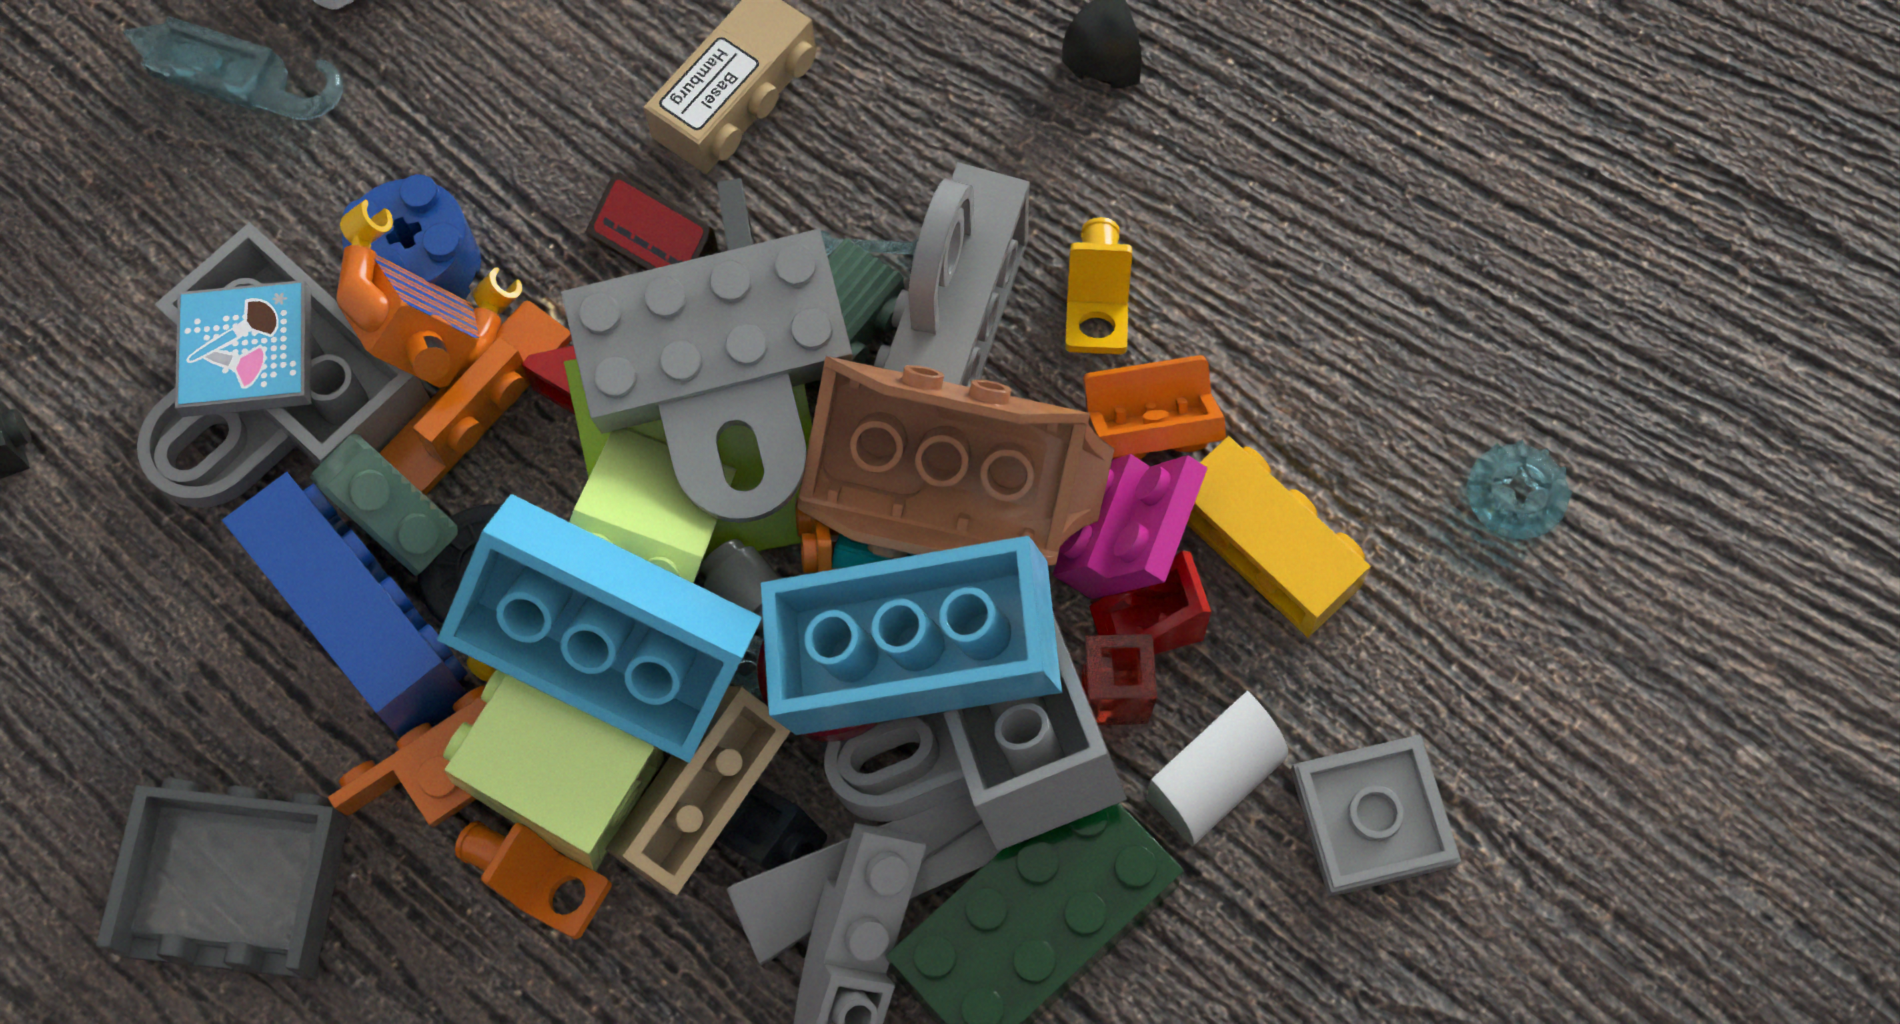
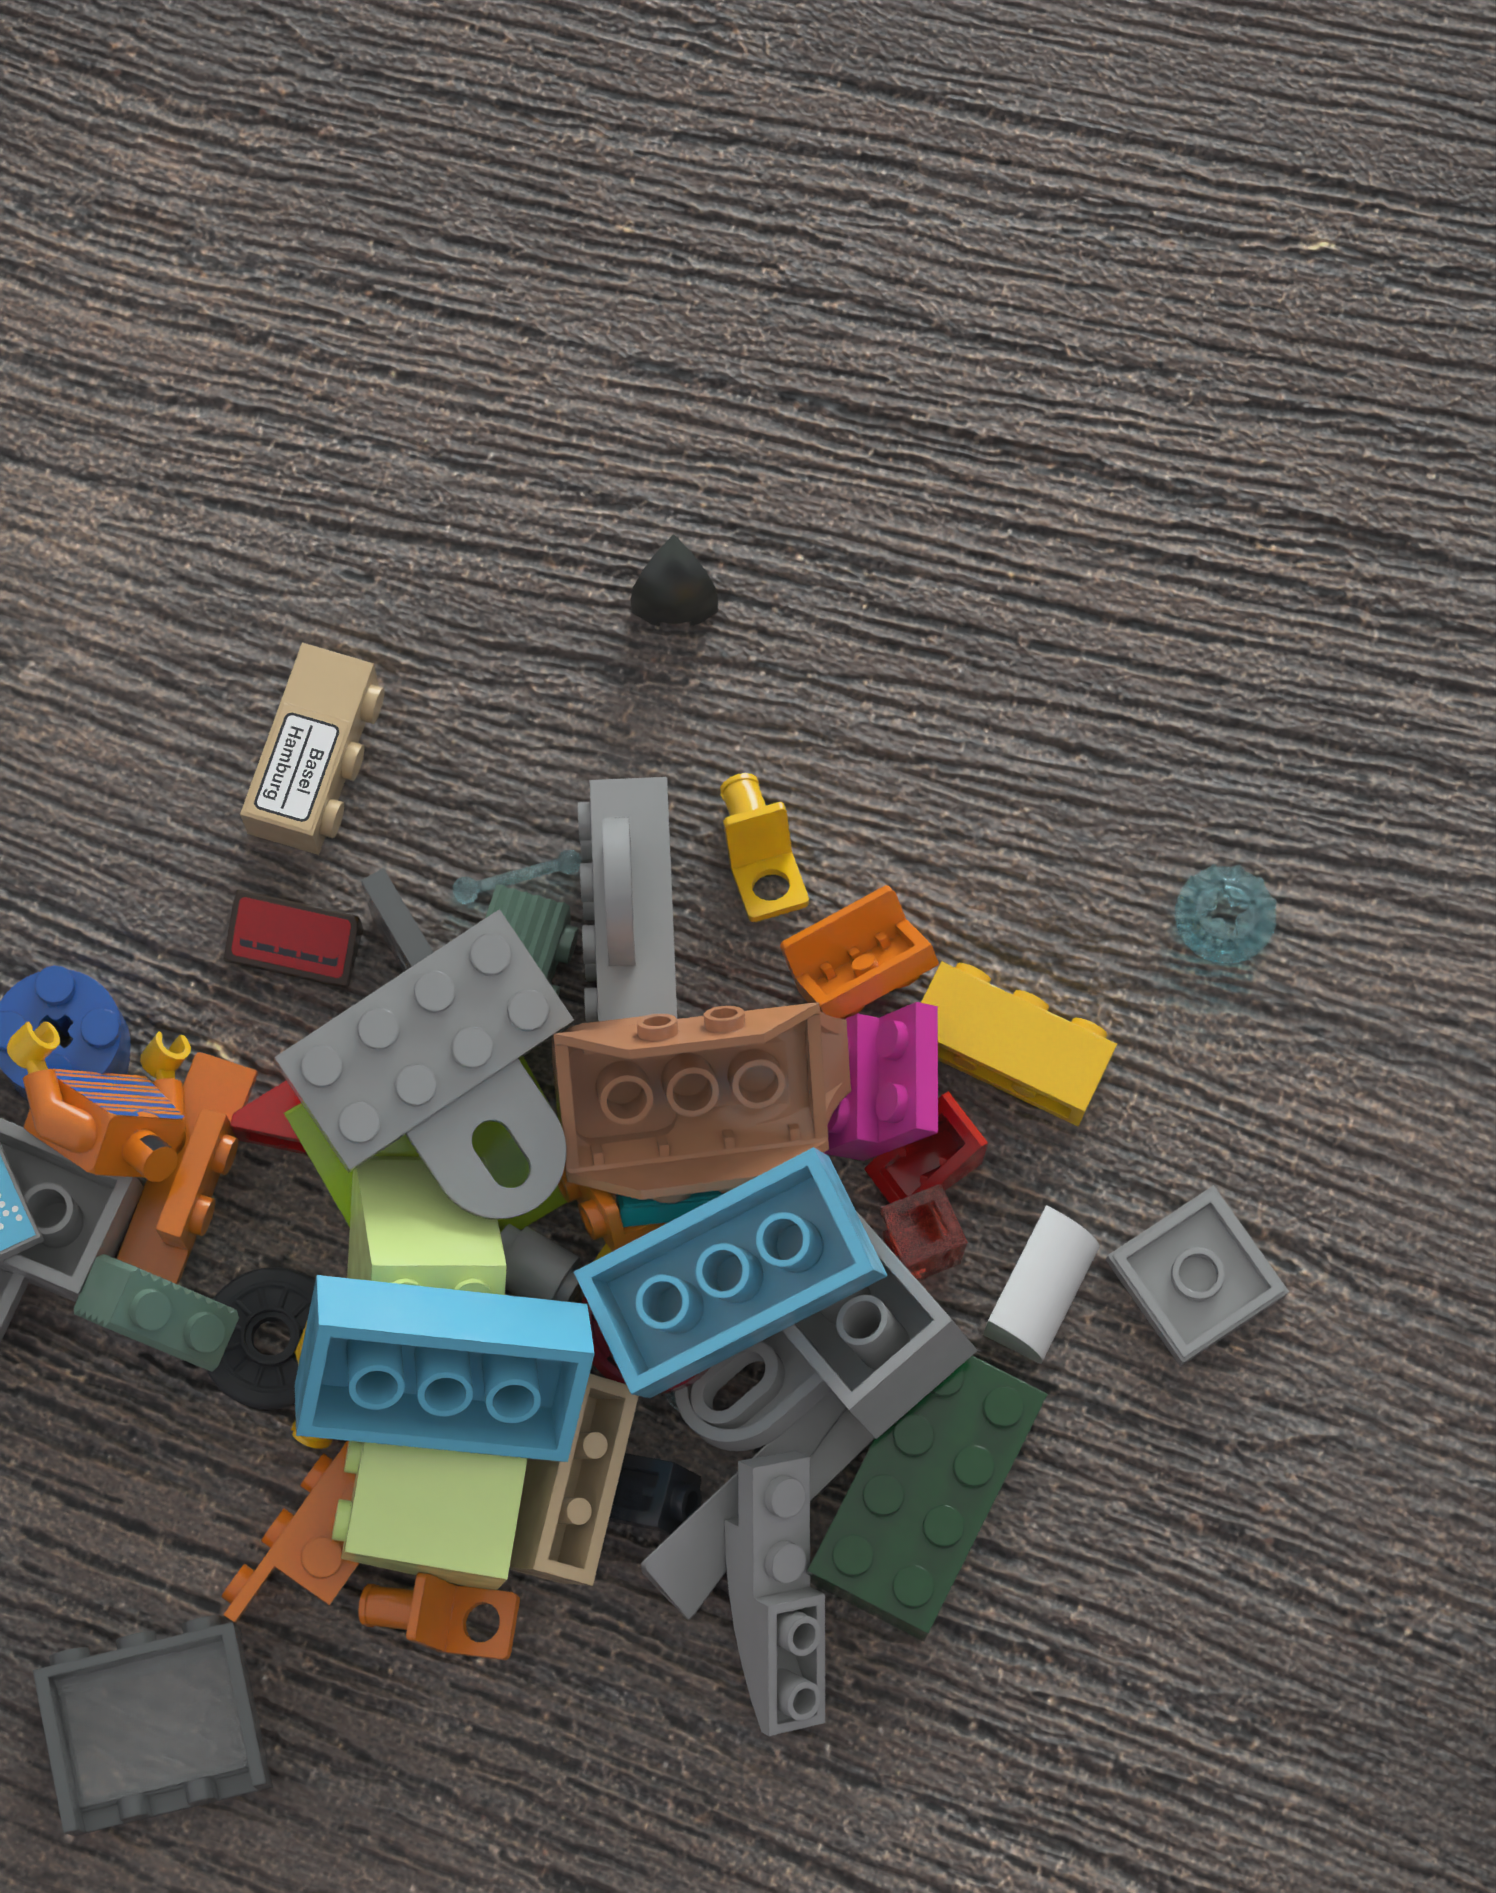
camera: 25 degrees left, 5 degrees up
(349, 604) = (162, 1427): blue brick -> none

